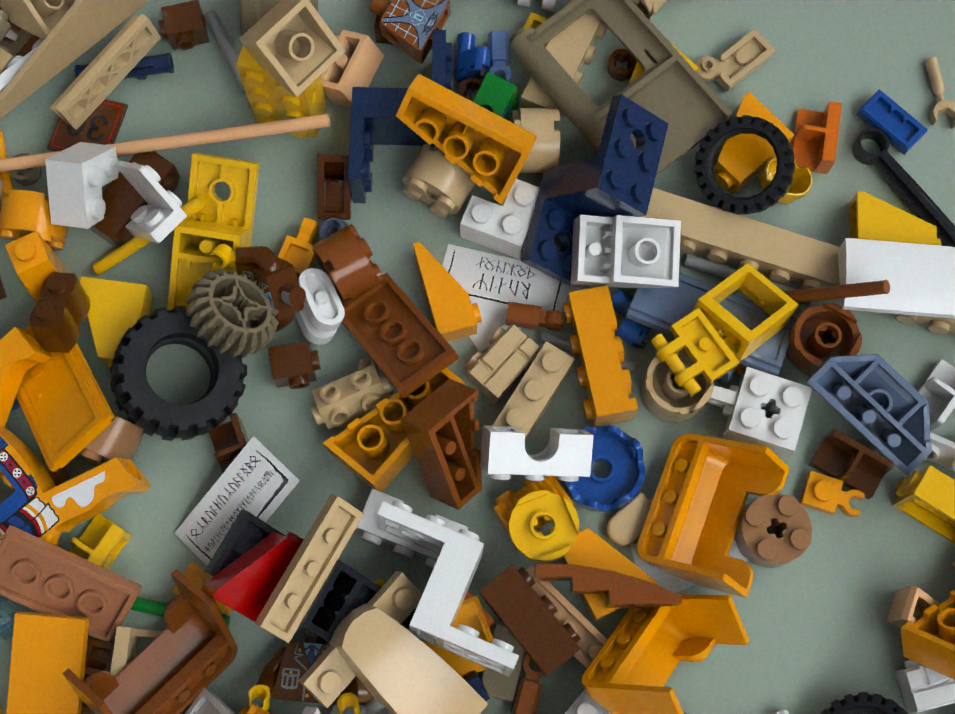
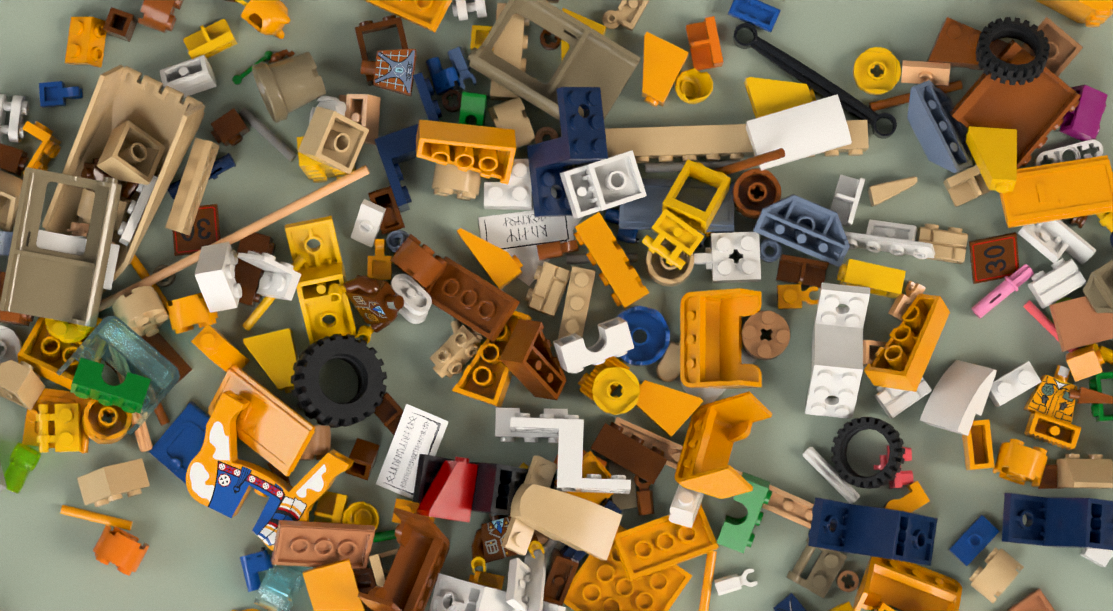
camera: 15 degrees left, 10 degrees up
(59, 312) = (245, 371): reddish brown brick -> none
(134, 564) = (361, 514): none -> yellow hair
(169, 490) = (364, 456): none -> reddish brown brick
(225, 318) = (358, 335): dark tan gear -> none
(294, 364) = (409, 343): reddish brown brick -> none
(304, 193) = (368, 223): none -> white plate
(309, 568) = (481, 475): tan fence -> none
(620, 589) = (679, 413): dark orange slope -> none
(718, 136) = (646, 114): black tyre -> none
(823, 418) = (775, 245): none -> sand blue plate
(870, 587) = (837, 350): none -> white bracket

